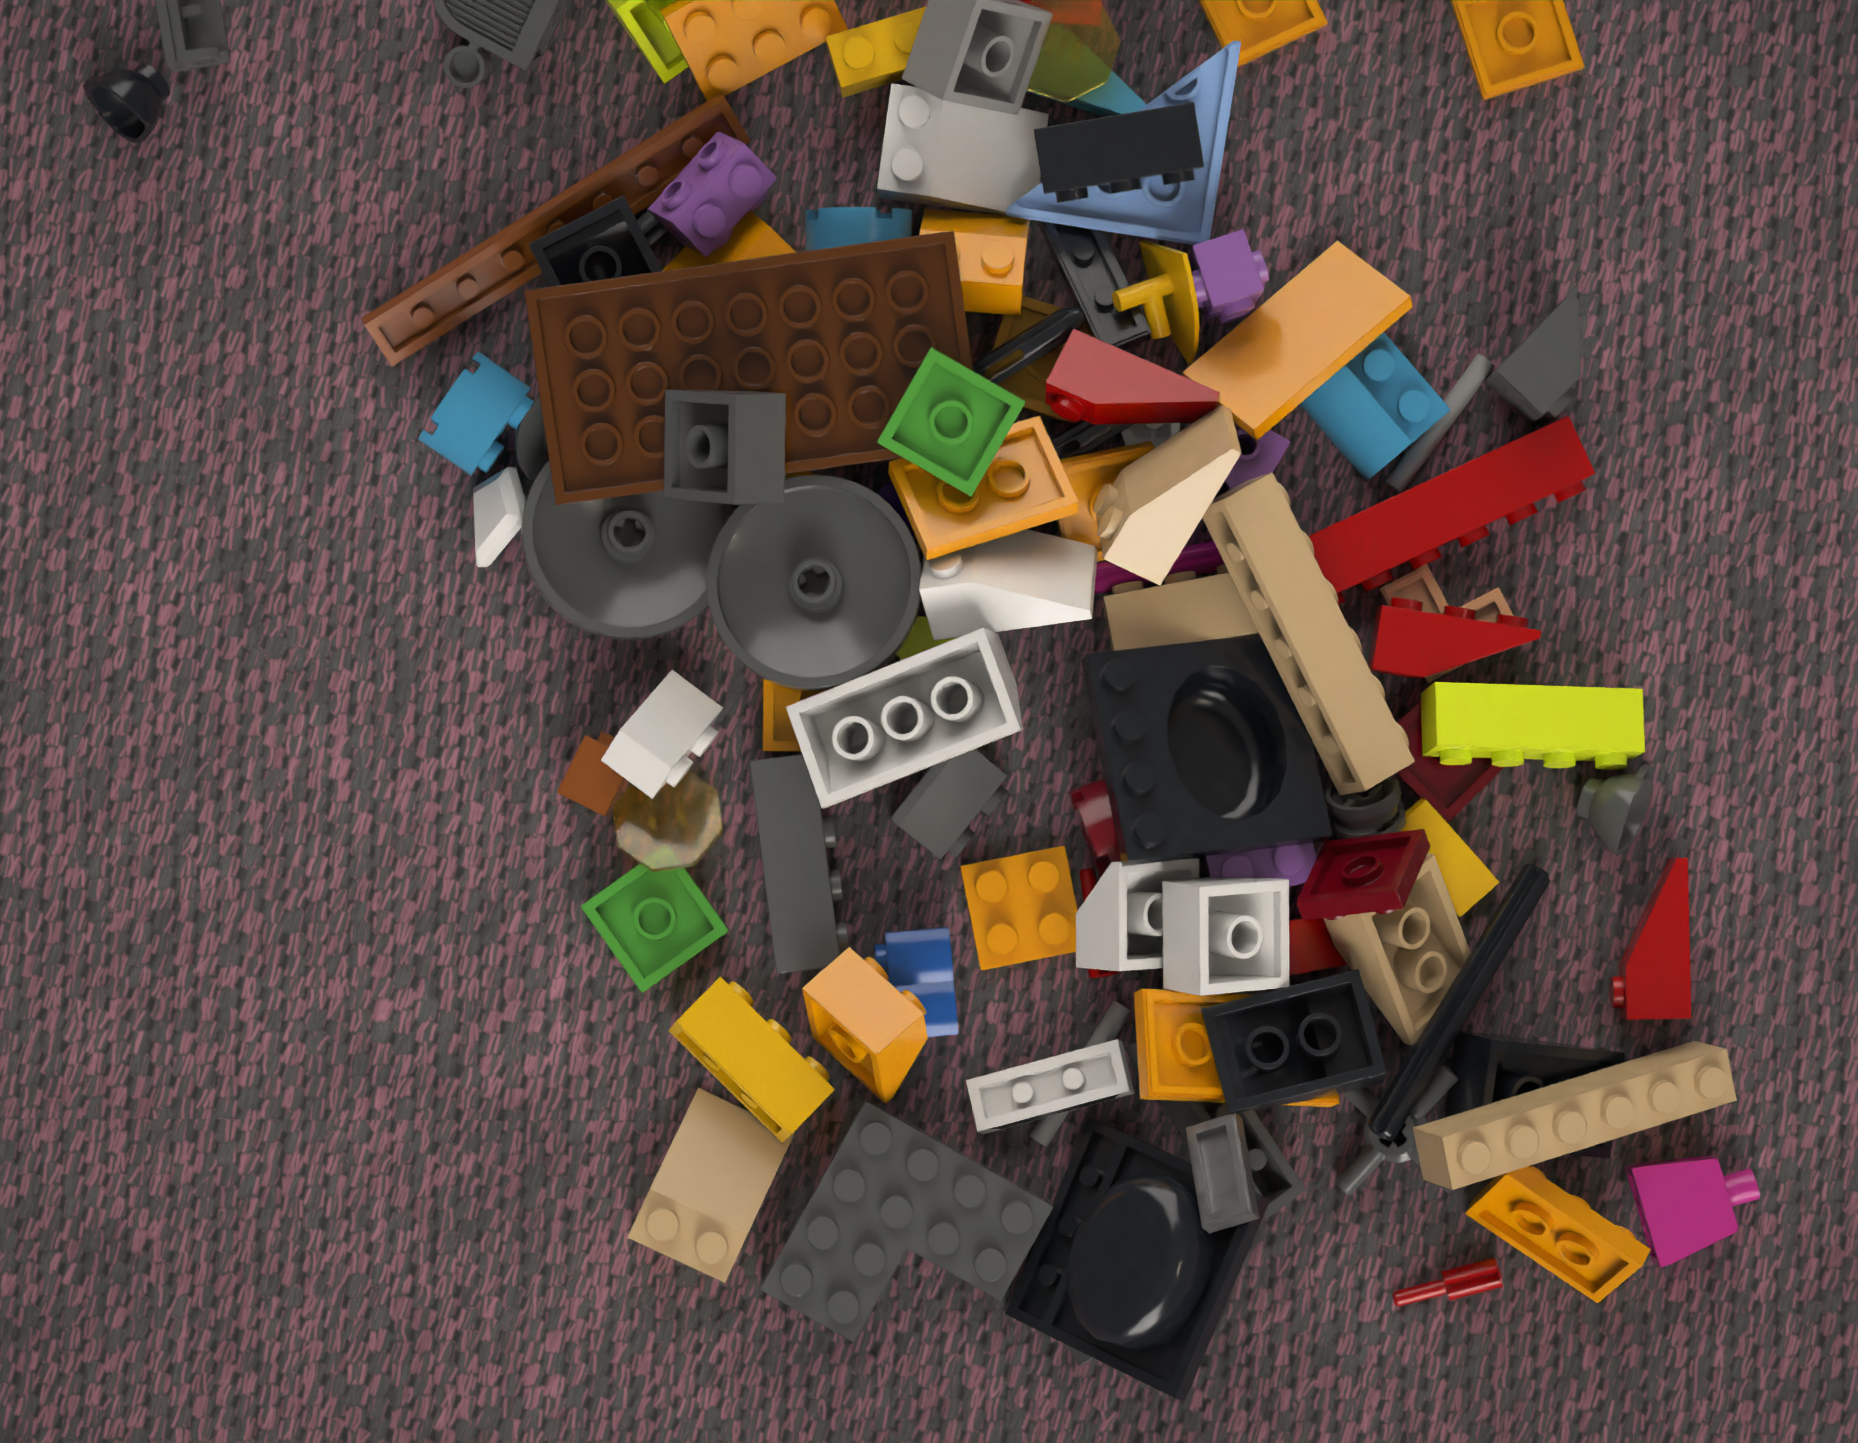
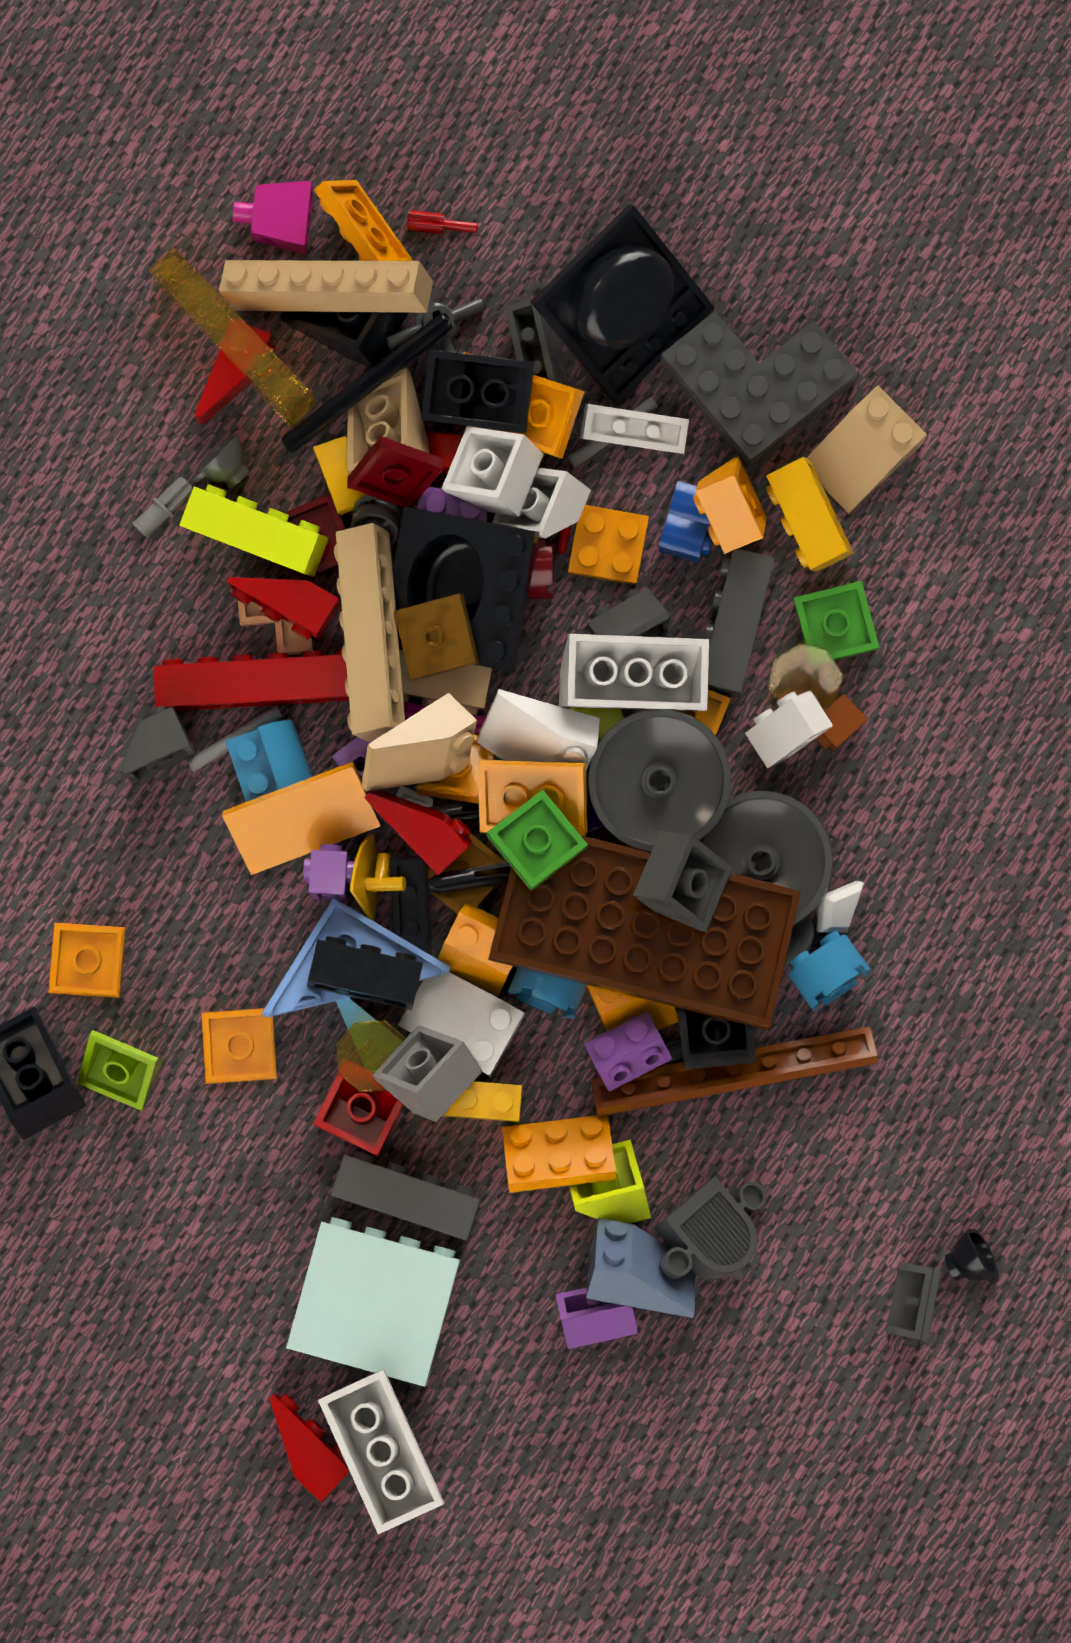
camera: 155 degrees left, 5 degrees down
(1210, 665) = (436, 636): none -> pearl gold plate
(1222, 1173) = (552, 328): flat silver tile -> none
(1677, 712) = (163, 507): none -> light grey axle
(1681, 992) = (233, 336): none -> clear yellow arch

